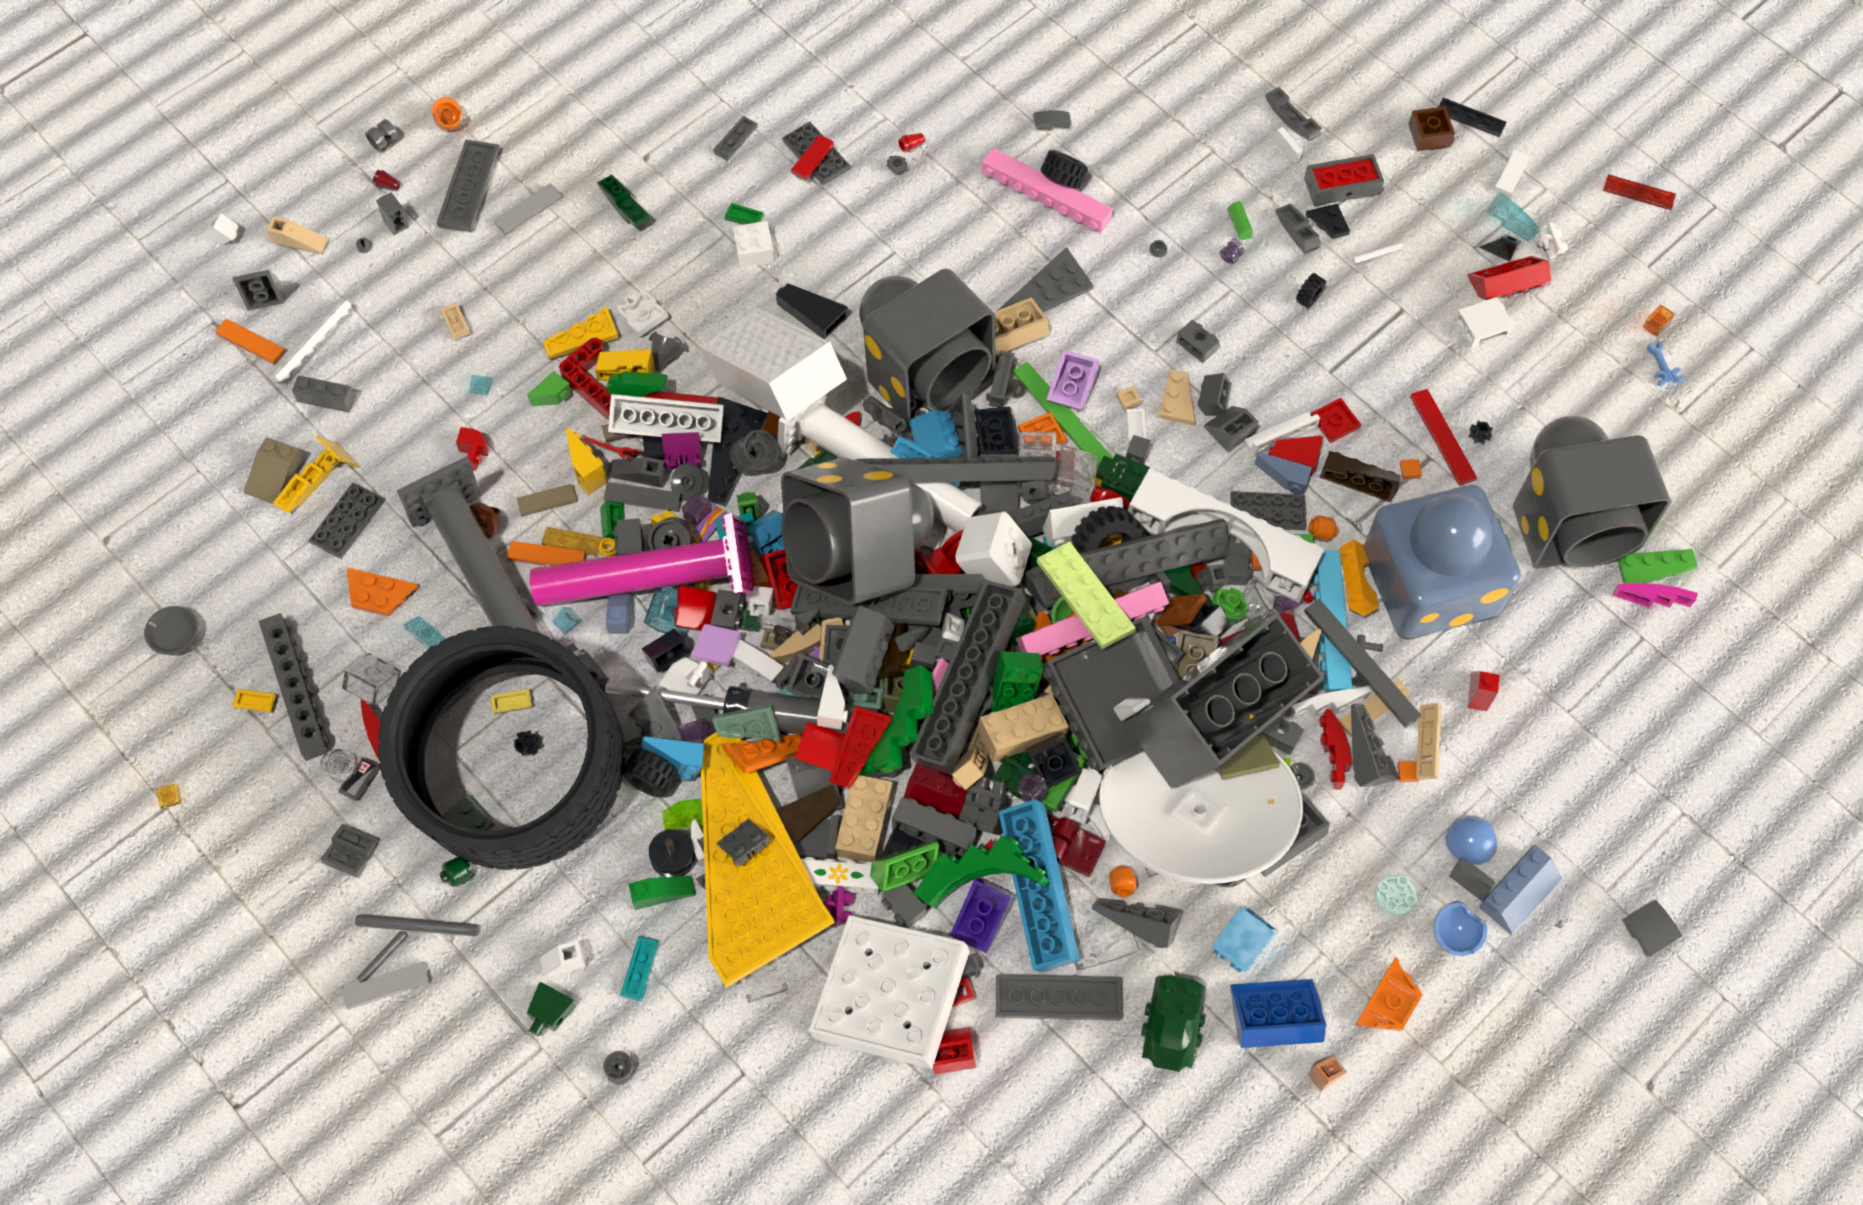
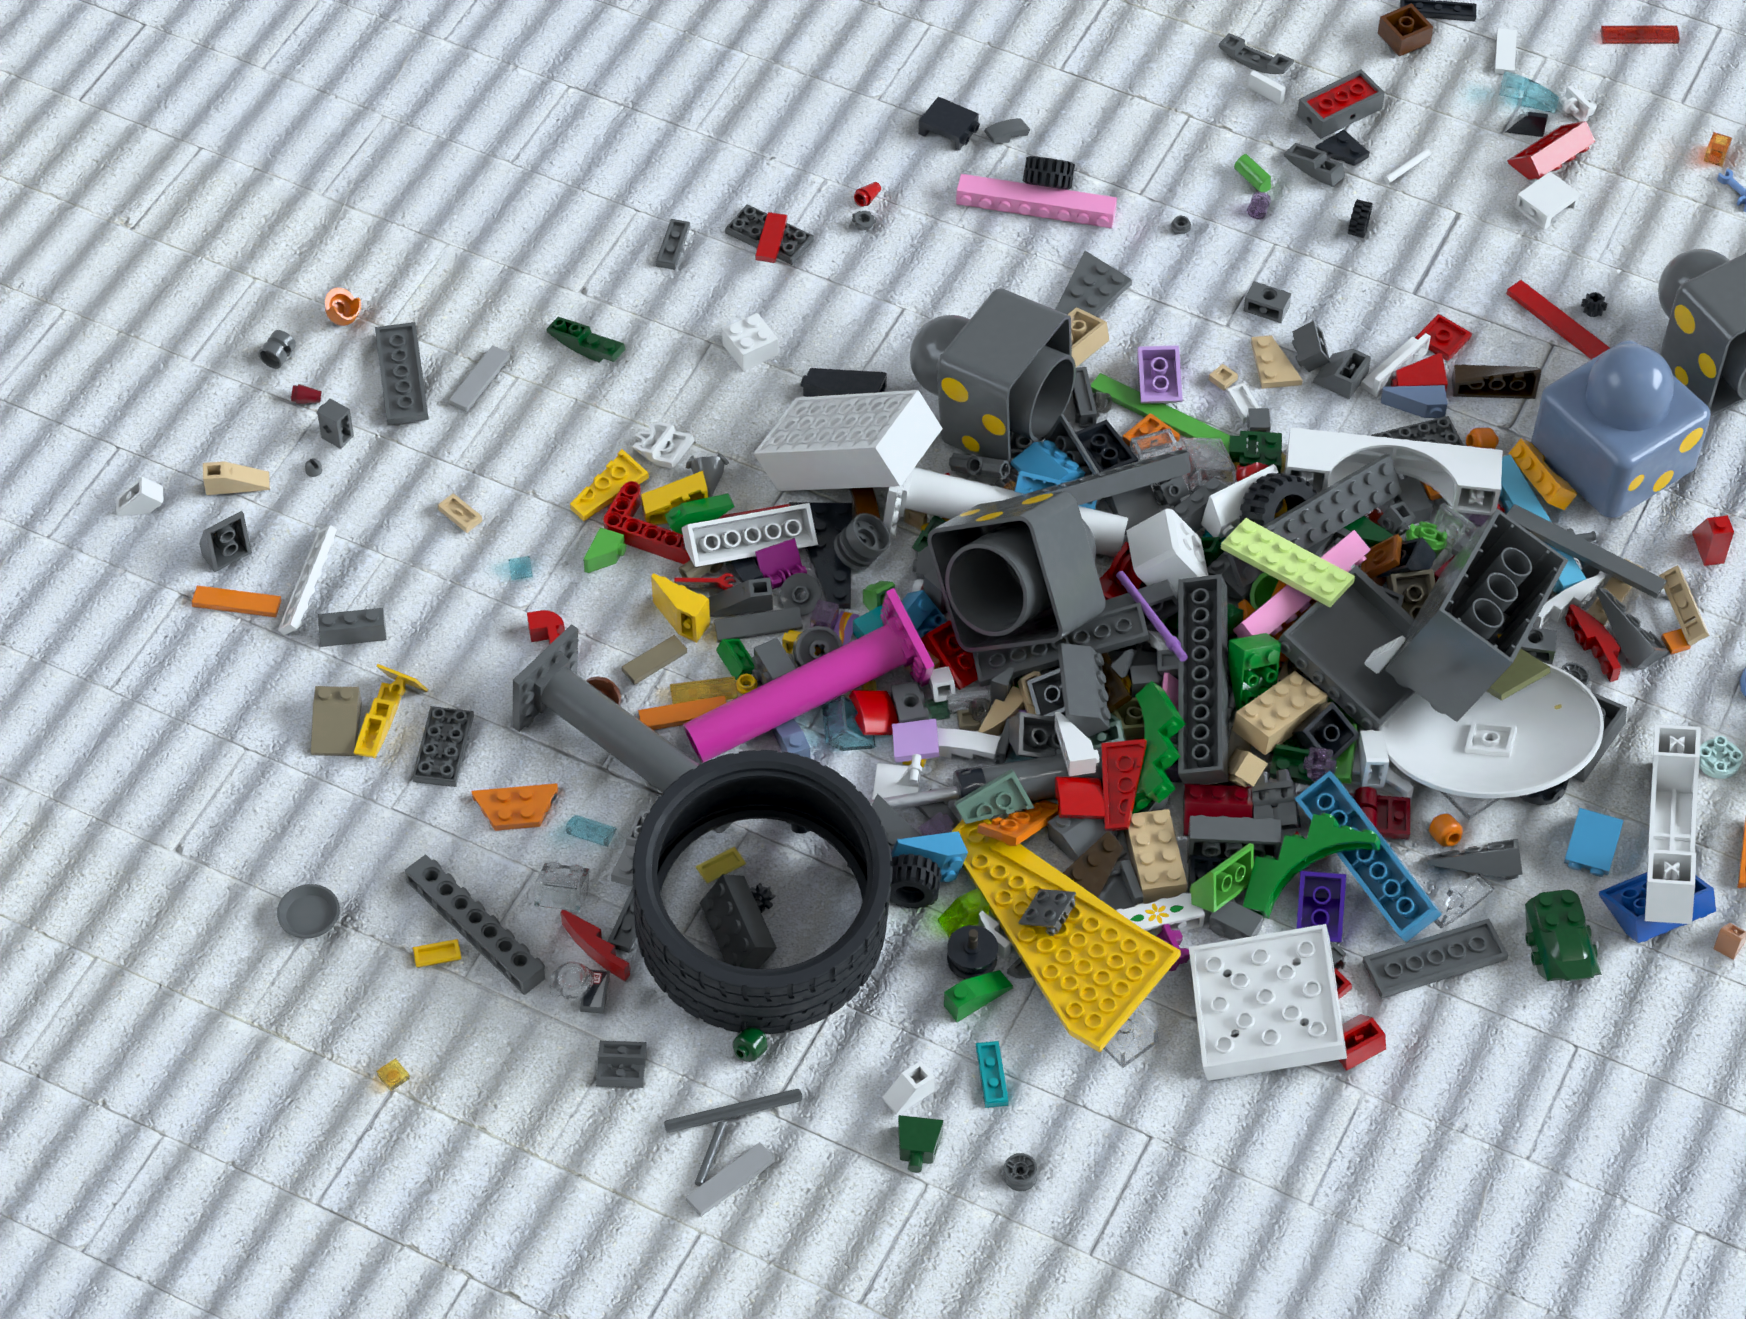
camera: 20 degrees left, 10 degrees down
(491, 763) = (737, 923): none -> dark grey brick
(665, 650) = (864, 761): black brick -> none
(743, 215) = (721, 317): green tile -> none
(953, 635) = (1172, 642): none -> medium lavender bar
(1007, 98) = (949, 121): none -> black panel
(1297, 987) = (1673, 825): none -> white arch
(1410, 469) = (1541, 360): orange tile -> none

